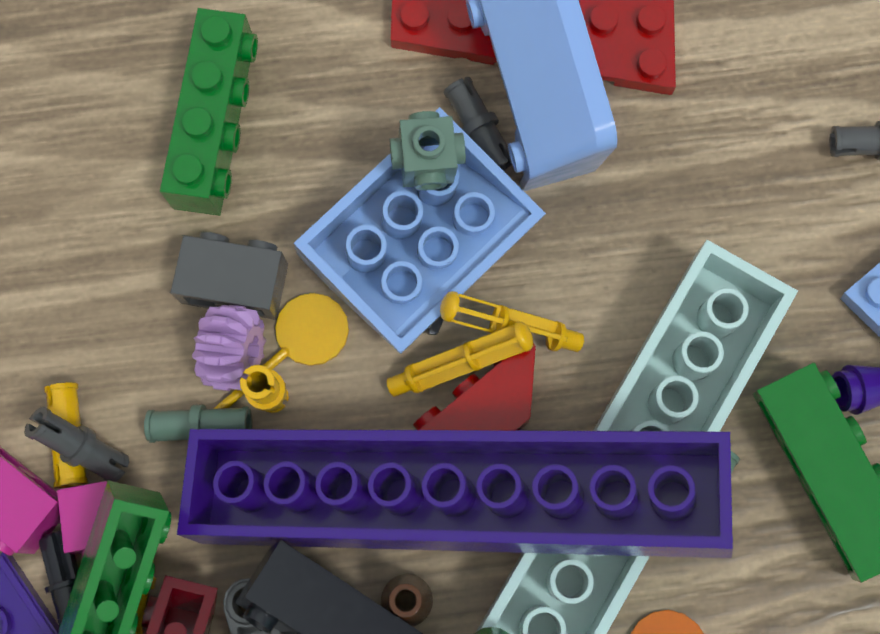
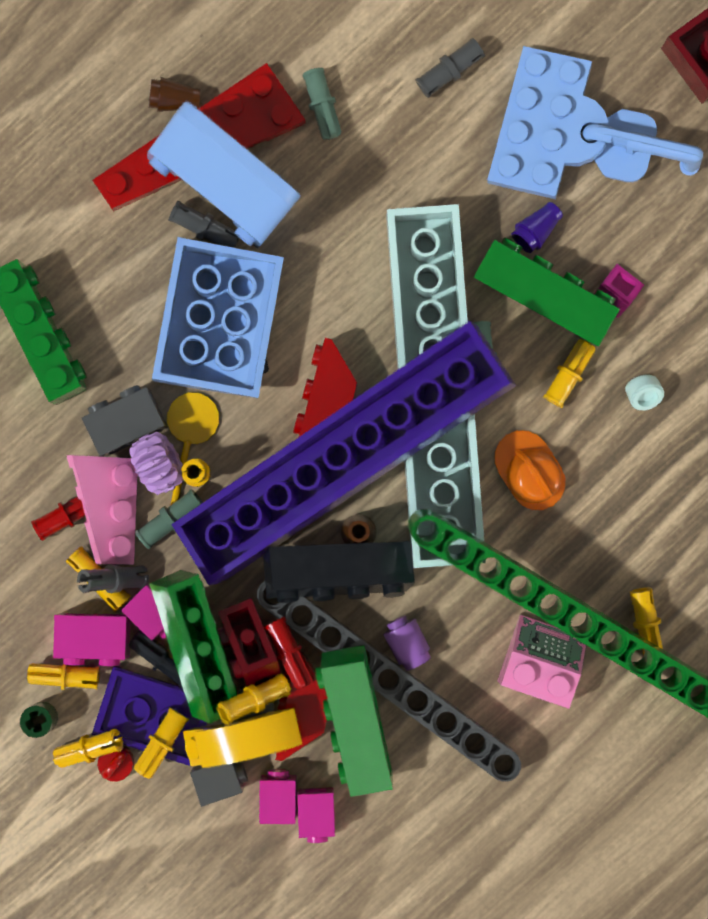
camera: 40 degrees left, 10 degrees up
(87, 336) = (59, 518): none -> red axle
(140, 359) = (109, 502): none -> bright pink wing
(425, 168) = (192, 285): sand green brick -> none
(462, 359) = (295, 376): yellow piece -> none
(555, 332) = (309, 334): yellow piece -> none
(706, 83) = (322, 103): none -> sand green axle
(797, 590) = (570, 373): none -> yellow axle

